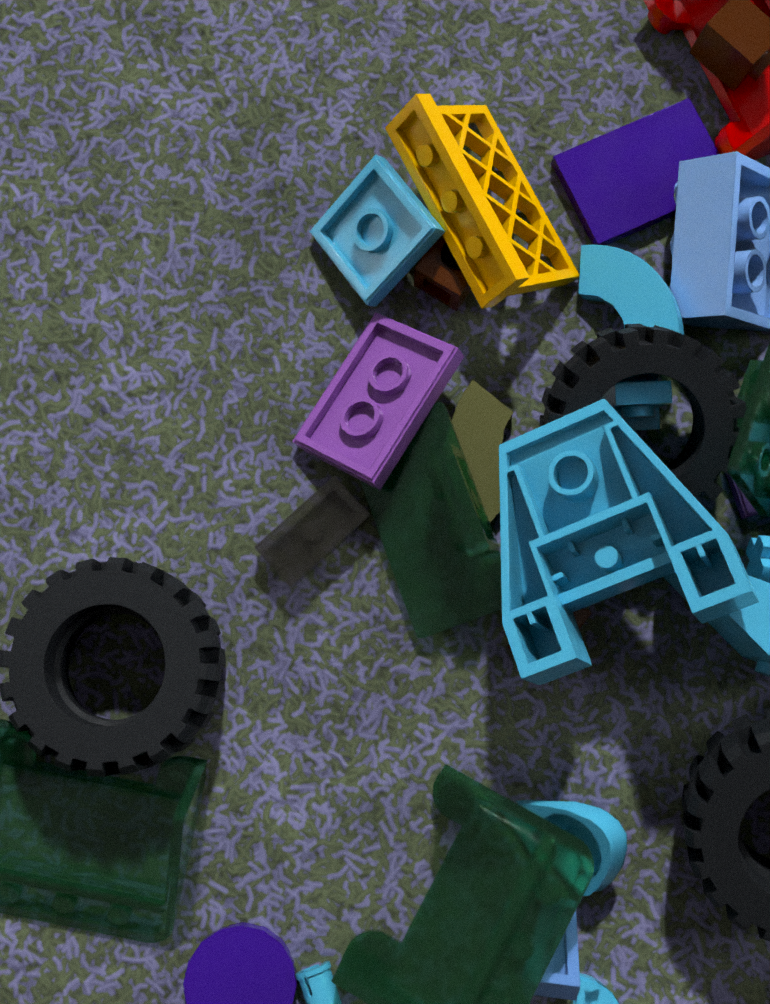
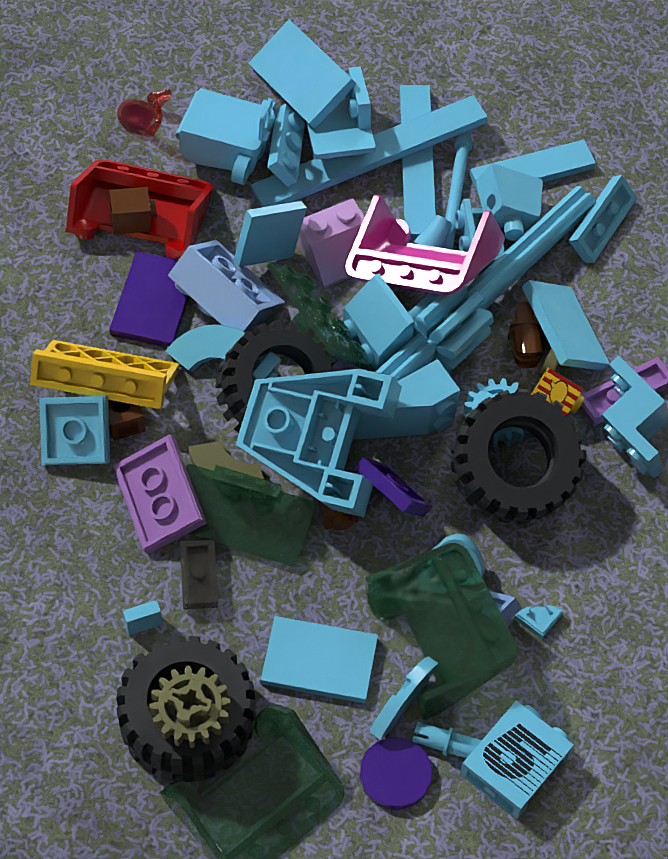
camera: 55 degrees left, 20 degrees down
(88, 712) = (182, 692): none -> olive gear
(200, 512) = (142, 617): none -> medium azure tile
(318, 769) = (319, 659): none -> medium azure tile
(339, 924) = (398, 704): none -> medium azure tile
(617, 685) = (393, 487): none -> dark purple tile

